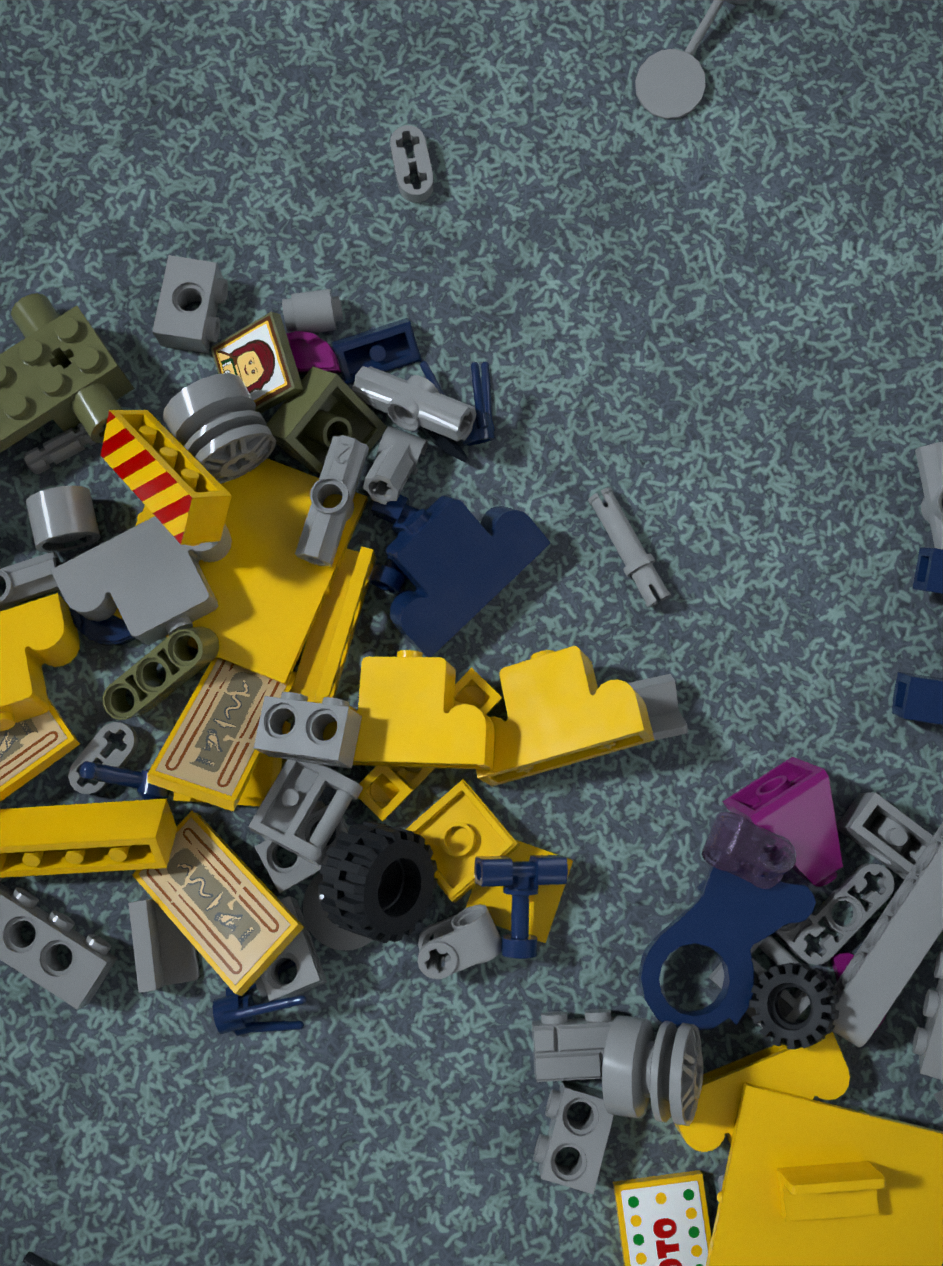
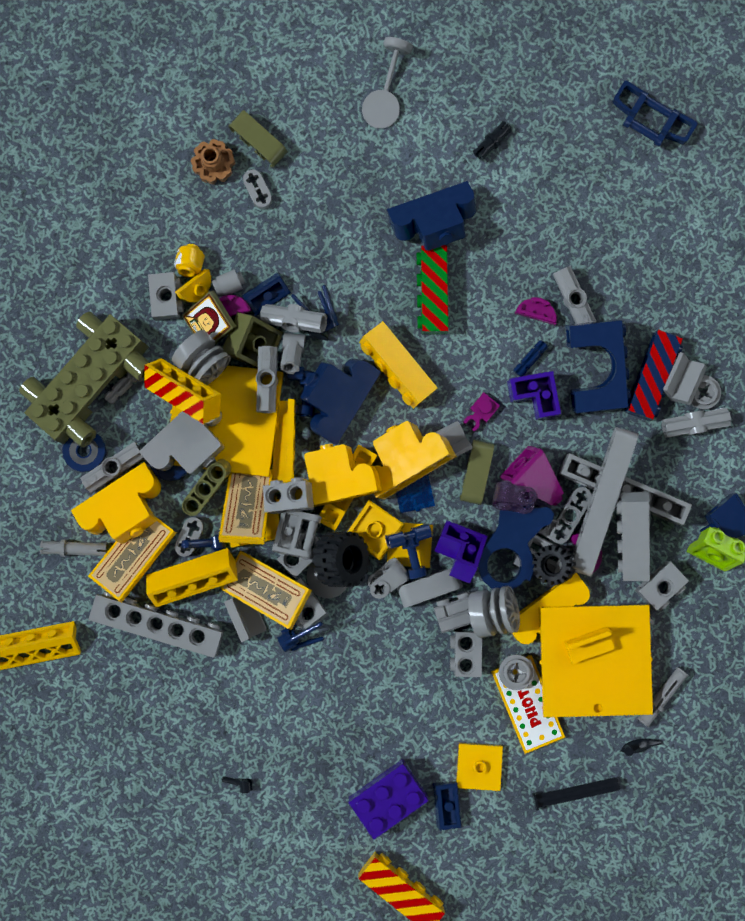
camera: 10 degrees left, 5 degrees up
(62, 517) = (134, 423): light grey piece -> none
(248, 303) = (196, 287): none -> yellow plate
(252, 253) = (189, 260): none -> yellow head
(345, 95) = (218, 168): none -> medium nougat plant
(438, 75) = (258, 137): none -> olive beam
(536, 982) = (428, 588): none -> light grey beam
(554, 795) = (416, 495): none -> clear blue piece
(584, 539) = (397, 365): none -> yellow brick
(623, 920) = (464, 547): none -> dark purple brick
(636, 560) = (427, 367): light grey pin -> none
(674, 1220) = (523, 679): none -> light grey gear
(684, 783) = (477, 472): none -> olive beam
(686, 421) = (434, 291): none -> brick
(722, 290) = (434, 217): none -> dark blue brick
(722, 665) = (482, 409): none -> magenta plate
(836, 594) = (531, 357): none -> dark blue axle
(843, 655) = (540, 389): none -> dark purple brick
(858, 187) = (492, 140): none -> black pin
(870, 508) = (537, 309): none -> magenta plate

